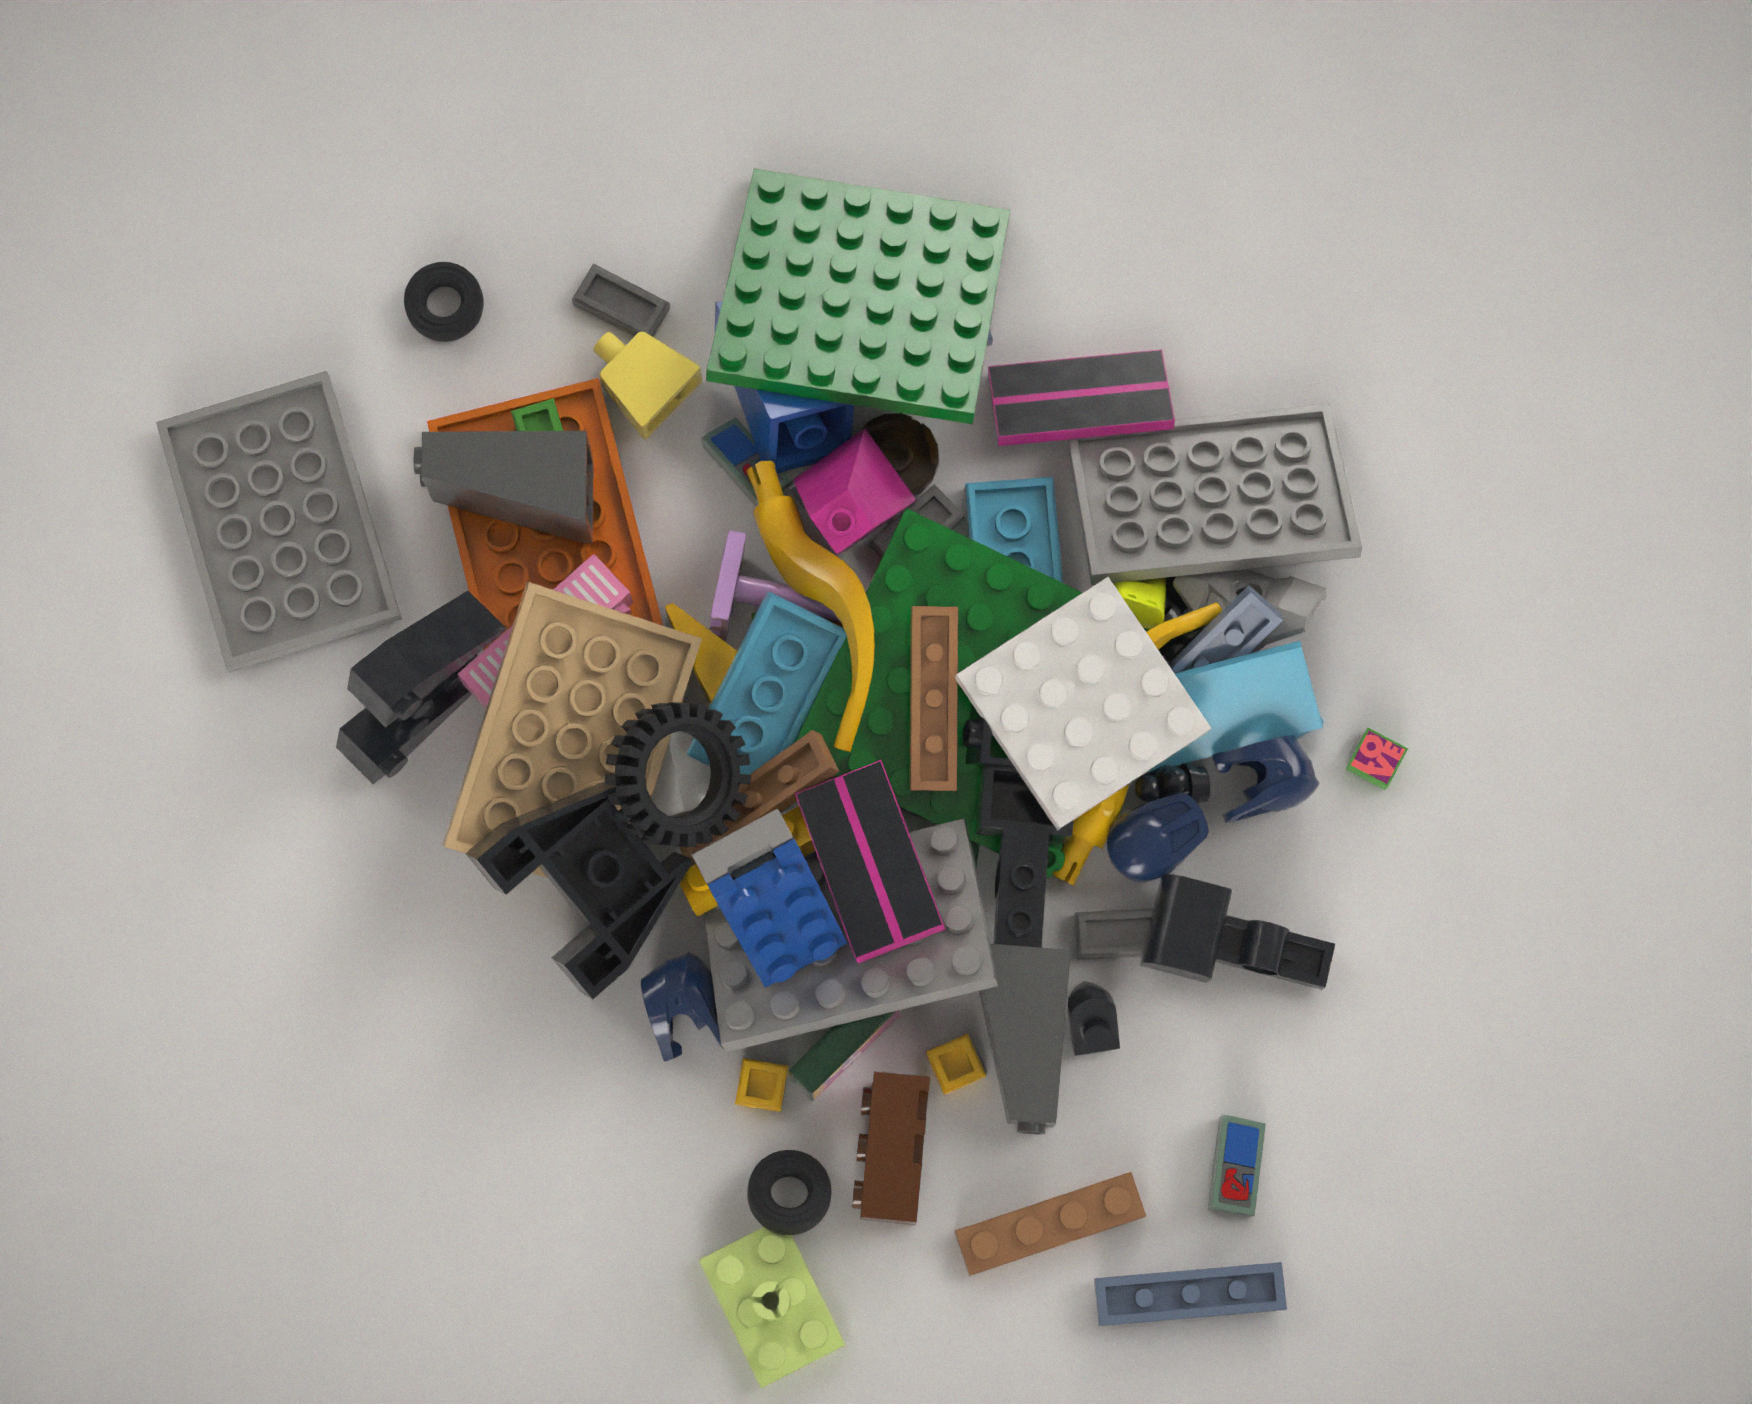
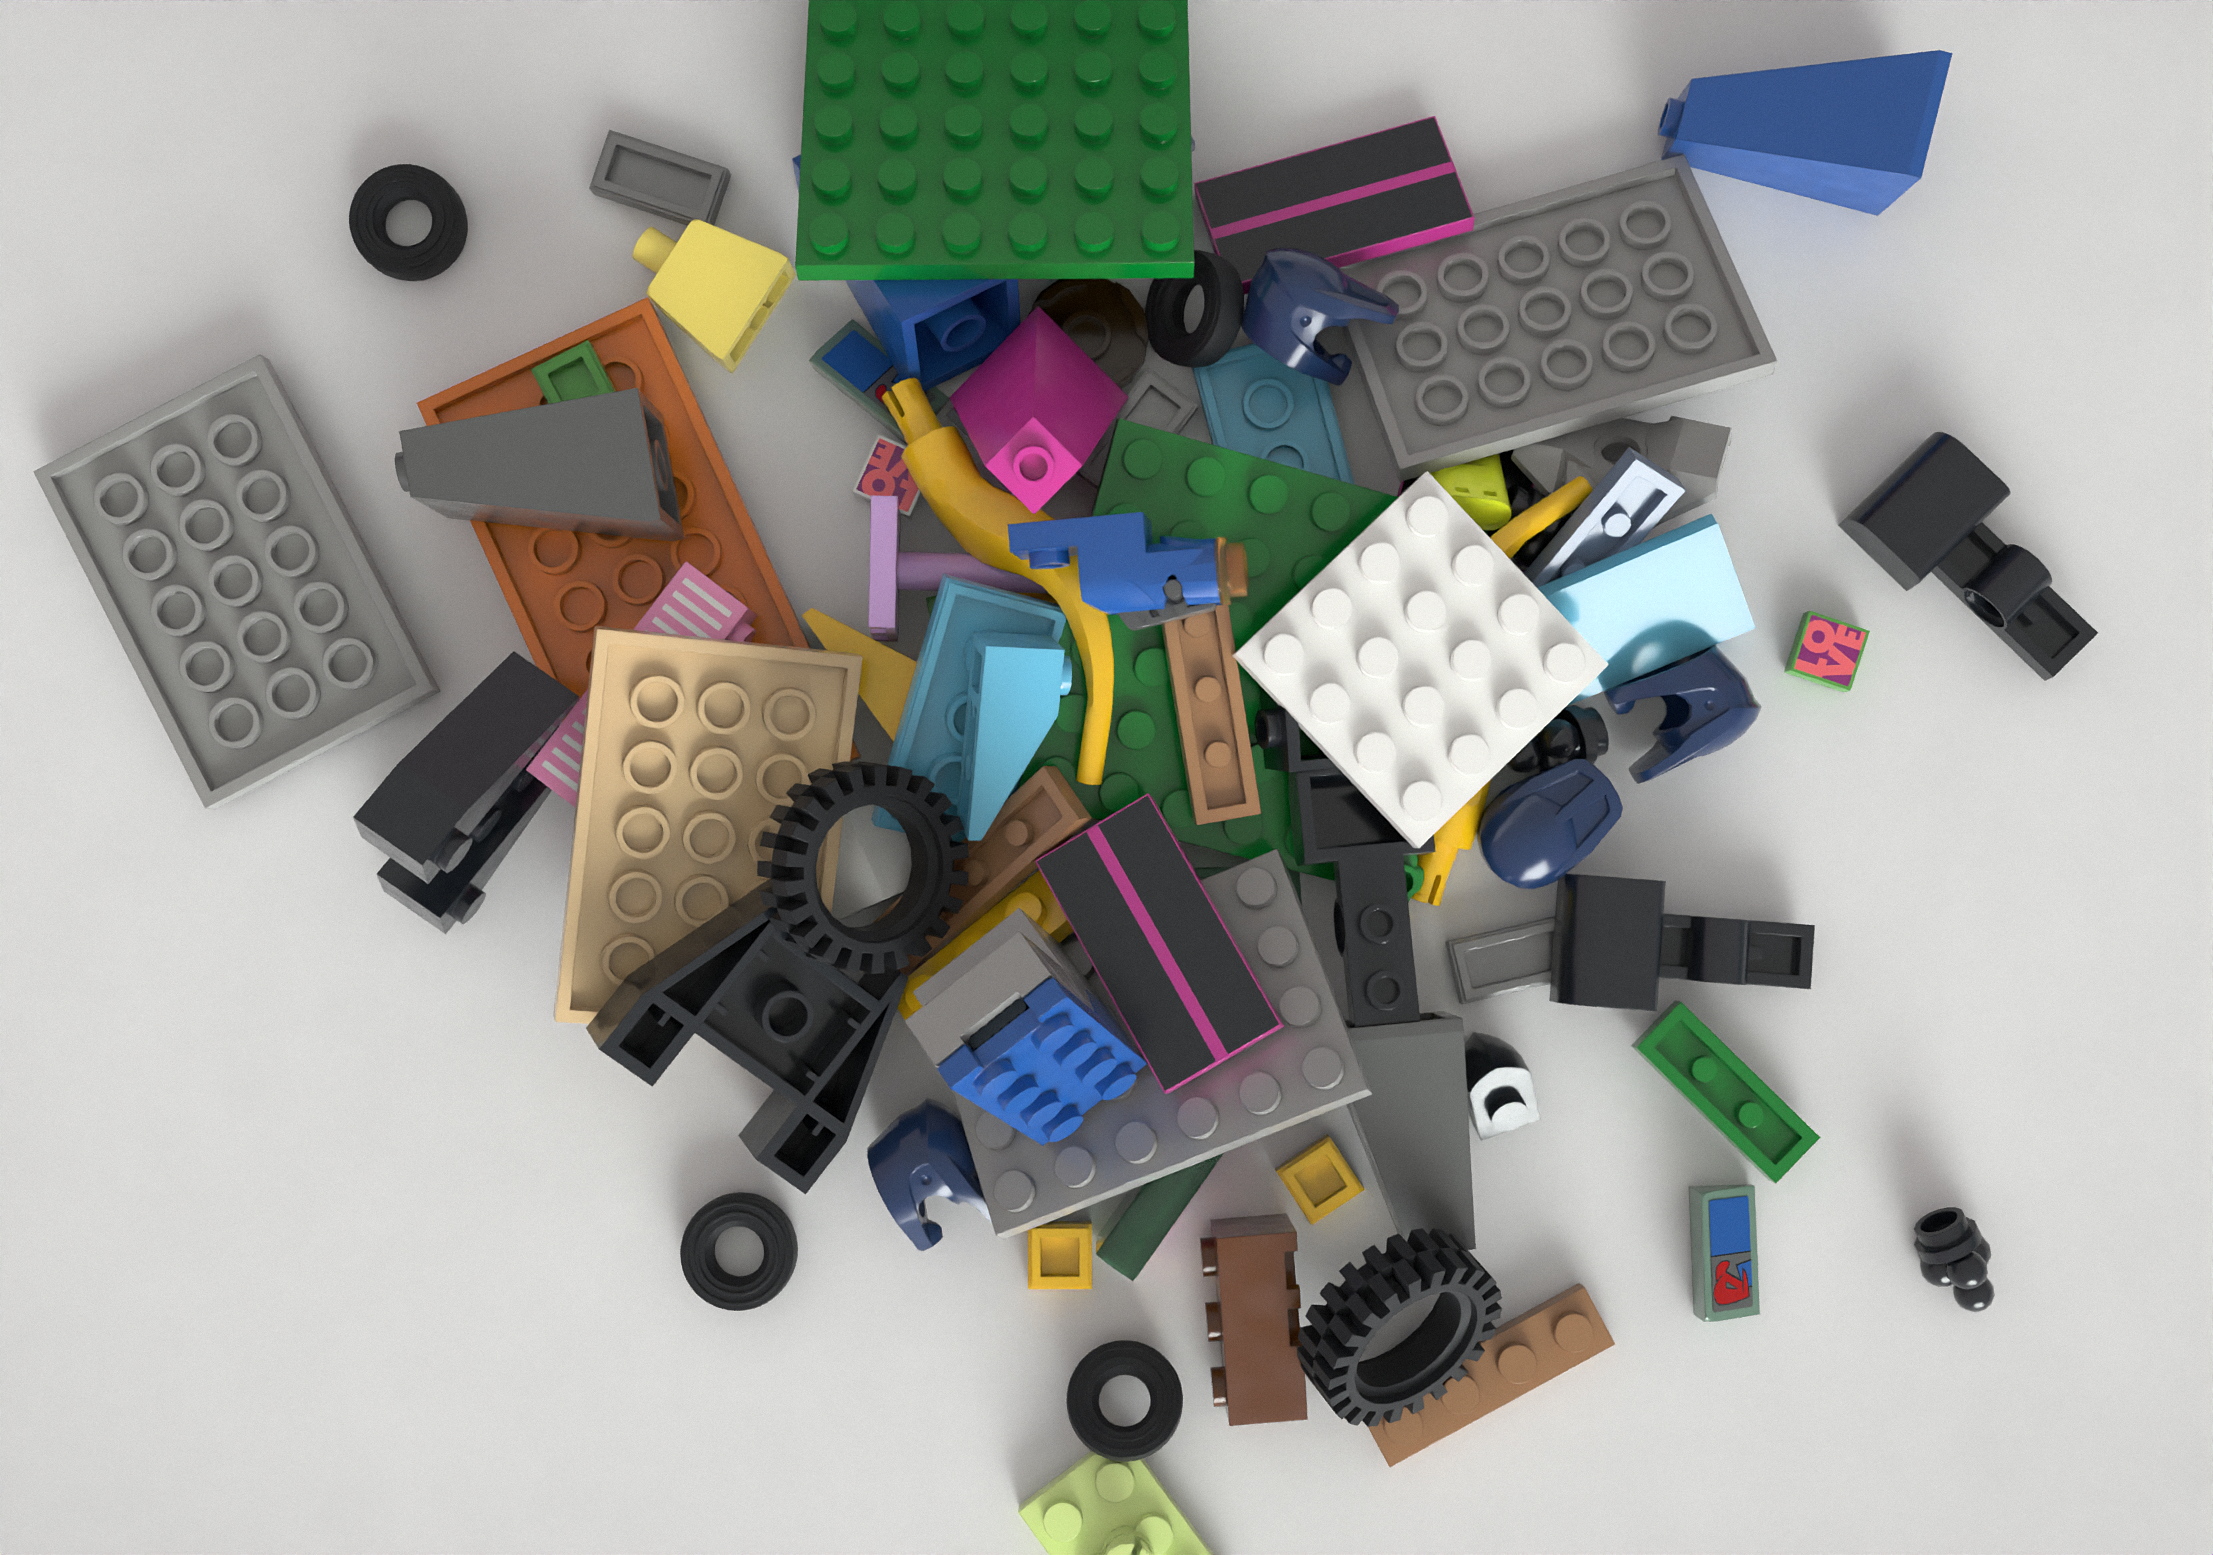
camera: 10 degrees left, 10 degrees up
(515, 1021) = (707, 1276): none -> black tyre
(741, 519) = (887, 475): none -> tile
(794, 691) = (1008, 713): none -> medium azure slope
(892, 604) = (1131, 574): none -> blue plate
(970, 1128) = (1376, 1294): none -> black tyre
(988, 454) = (1219, 320): none -> black tyre
(1042, 449) = (1297, 298): none -> dark blue helmet
(1190, 1294) = (1692, 1439): sand blue plate -> none
(1254, 1050) = (1725, 1091): none -> green plate
(1400, 1196) = (1956, 1255): none -> black piece
(1416, 400) = (1816, 131): none -> blue slope
(1464, 681) = (1931, 521): none -> black plate

